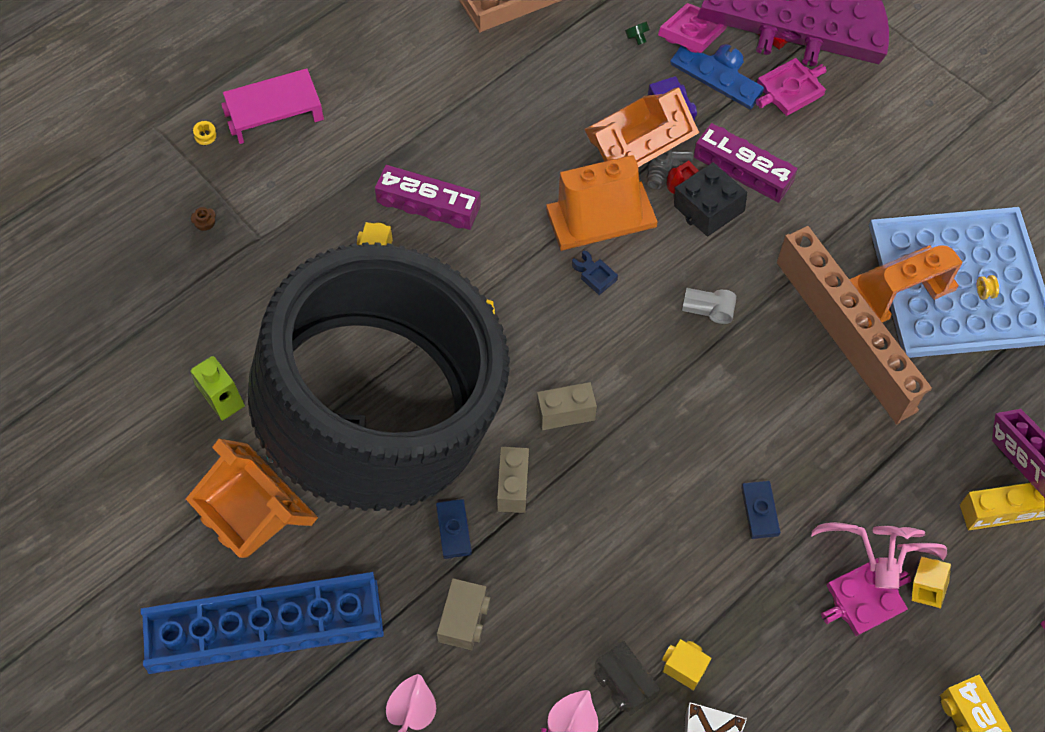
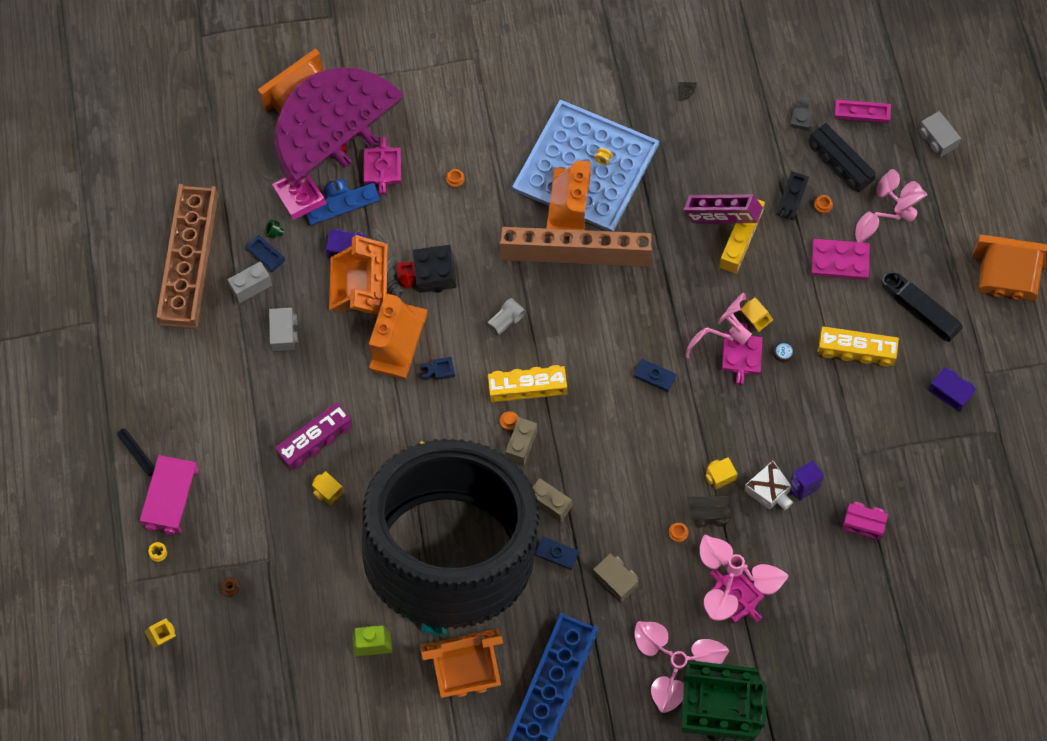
camera: 55 degrees left, 5 degrees up
(107, 180) = (160, 633): none -> yellow brick
(306, 50) = (136, 451): none -> black axle
(530, 100) = (283, 329): none -> light grey brick
(561, 43) = (250, 282): none -> light grey brick
(573, 657) = (678, 532): none -> orange plate
(585, 375) = (508, 420): none -> orange plate
(605, 40) = (265, 253): none -> dark blue plate
(643, 372) = (527, 383): none -> yellow brick
(745, 162) = (420, 230): magenta brick -> none
(835, 161) = (455, 178): none -> orange plate
(909, 649) = (784, 352): none -> tile

